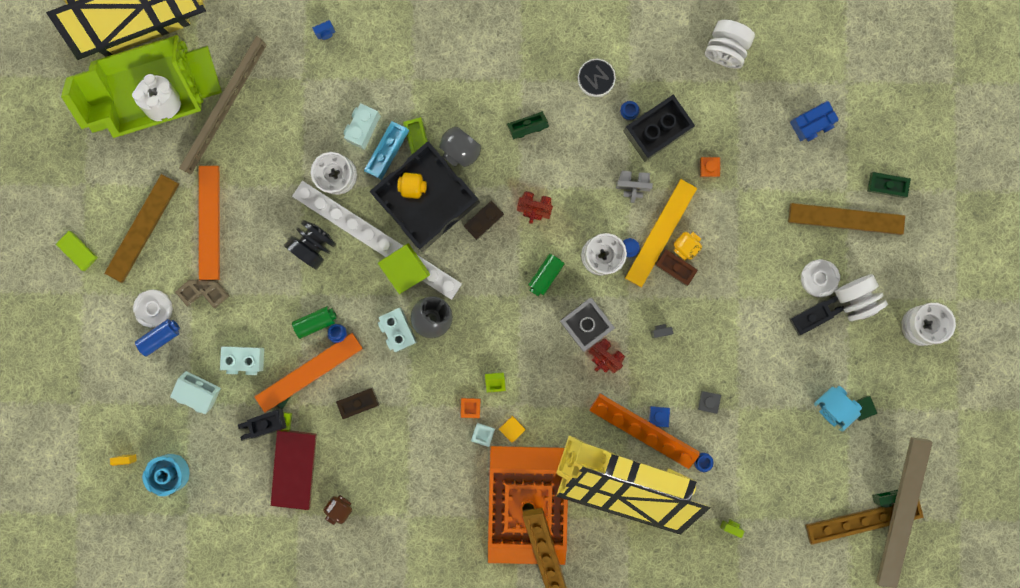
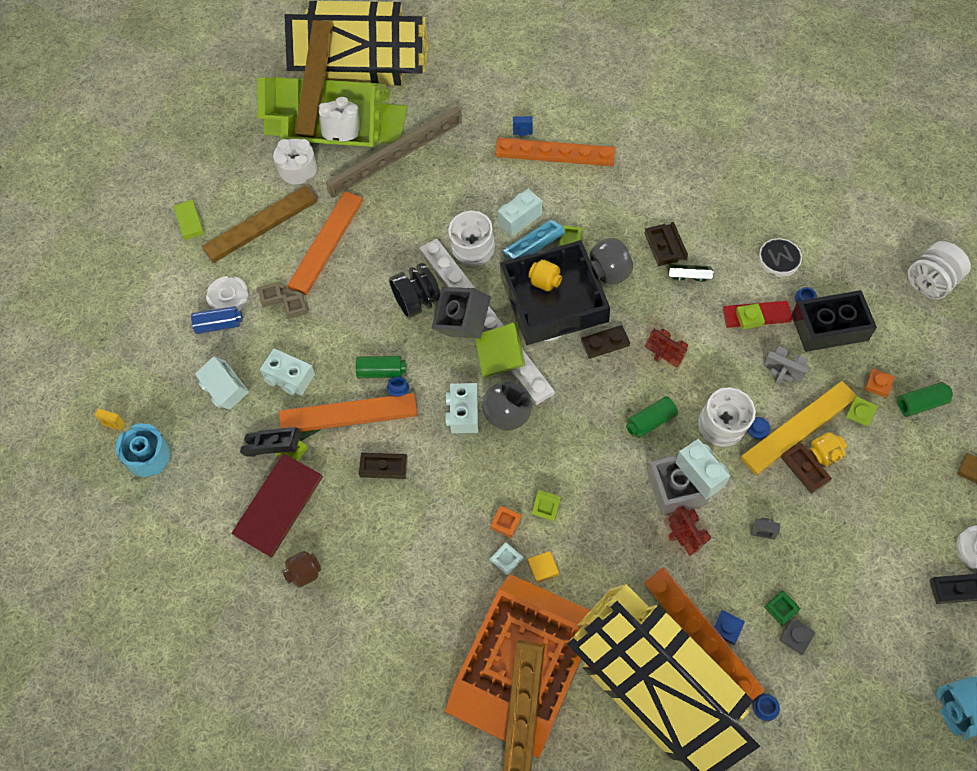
camera: 25 degrees right, 25 degrees down
(110, 64) = (314, 78): none -> pearl gold tile
(129, 150) = (295, 160): none -> white brick
(358, 252) = (461, 312): none -> dark grey brick
(364, 44) = (555, 151): none -> orange plate
(497, 105) = (665, 244): none -> dark brown plate
(591, 150) = (750, 316): none -> lime plate
(595, 142) = (773, 313): none -> red tile
(602, 315) = (702, 468): none -> light aqua brick
(692, 385) = (782, 607): none -> green tile
(703, 200) = (861, 411): none -> lime plate
(748, 169) = (924, 399): none -> green brick

